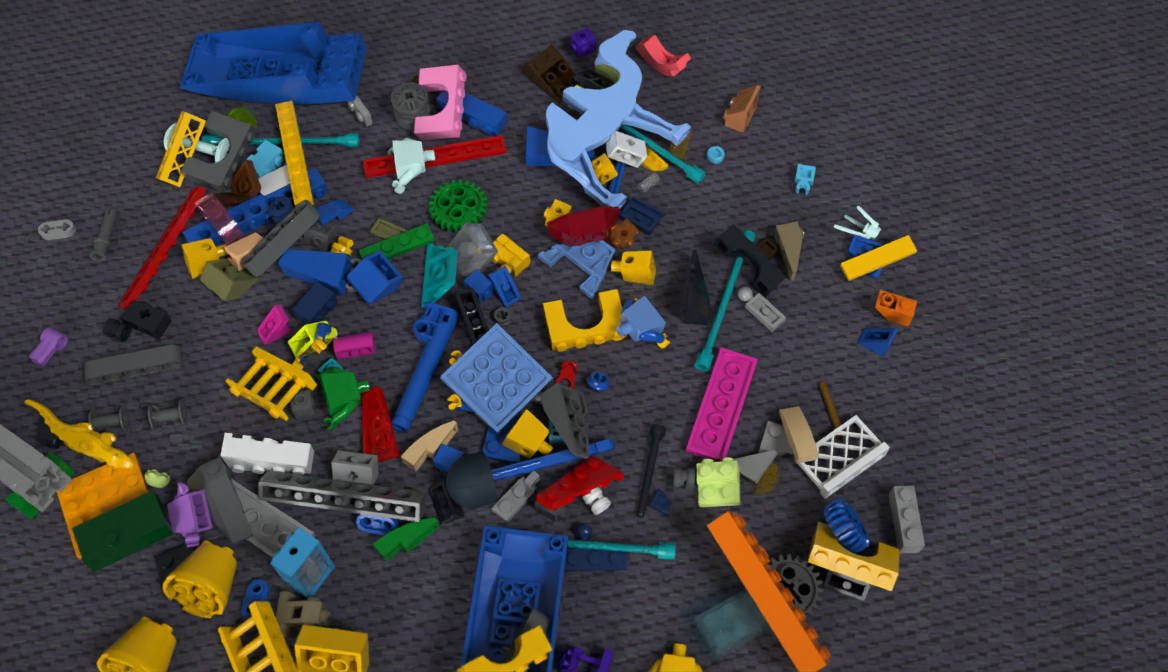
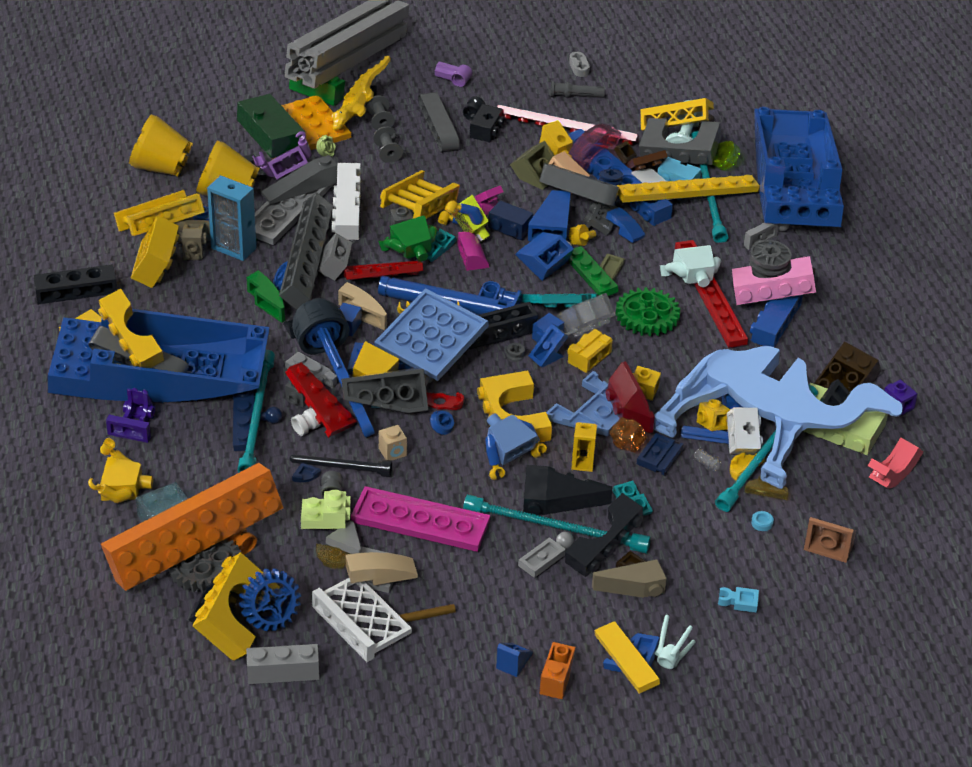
camera: 85 degrees right, 20 degrees down
(630, 423) = (392, 443): none -> tan brick
(698, 240) = (630, 490): none -> teal slope

